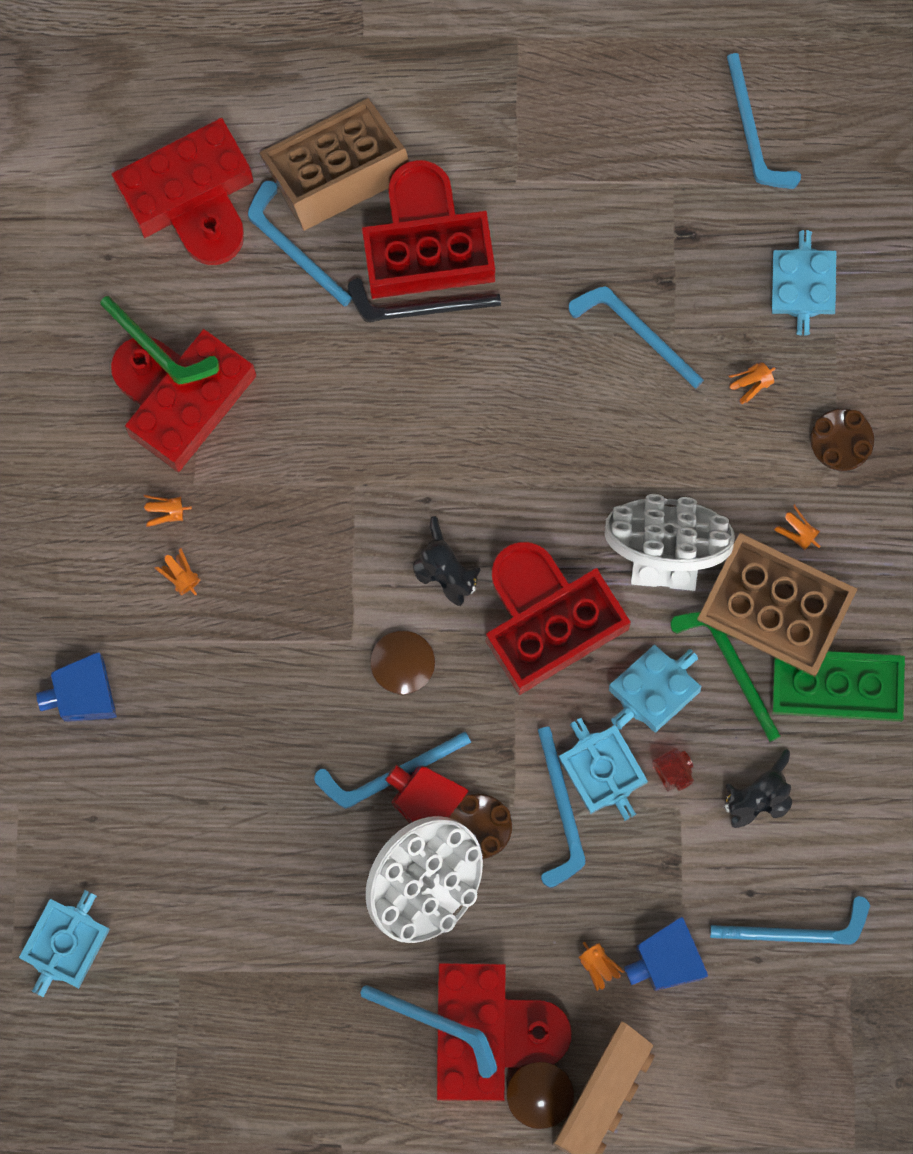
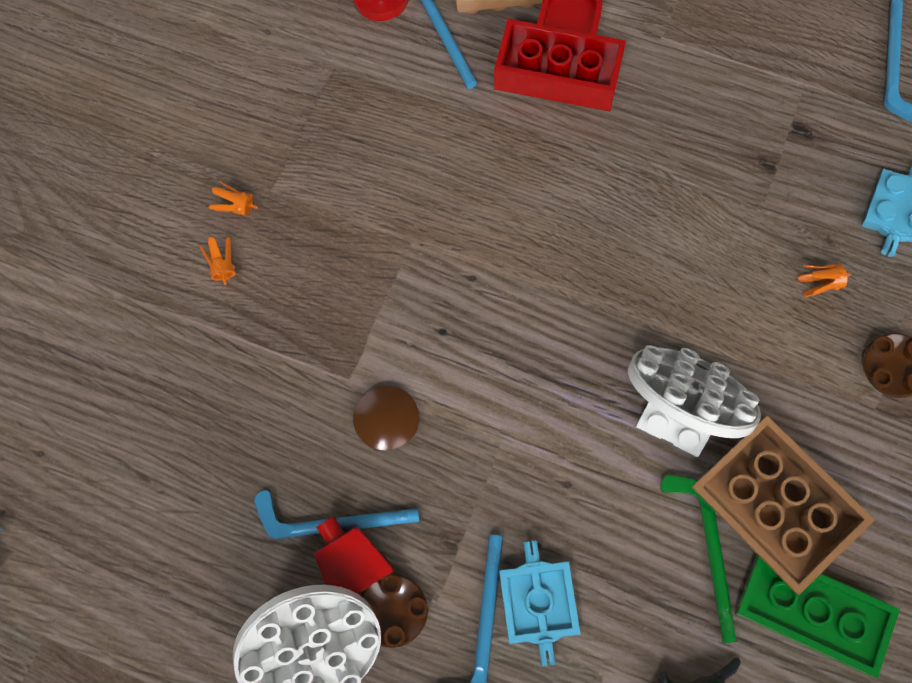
camera: 25 degrees right, 5 degrees down
(80, 691) = (82, 330): blue torso -> none
(176, 416) = (292, 108): red brick -> none
(179, 374) = (290, 81): green piece -> none
(372, 314) = (490, 102): black piece -> none
(440, 565) = (457, 338): black animal -> none
(550, 619) = (544, 430): red brick -> none
(605, 295) = (708, 157): dark azure piece -> none
(654, 688) = (622, 540): medium azure plate -> none
(674, 769) = (613, 632): clear red plate -> none
(806, 531) = (832, 441): orange piece -> none

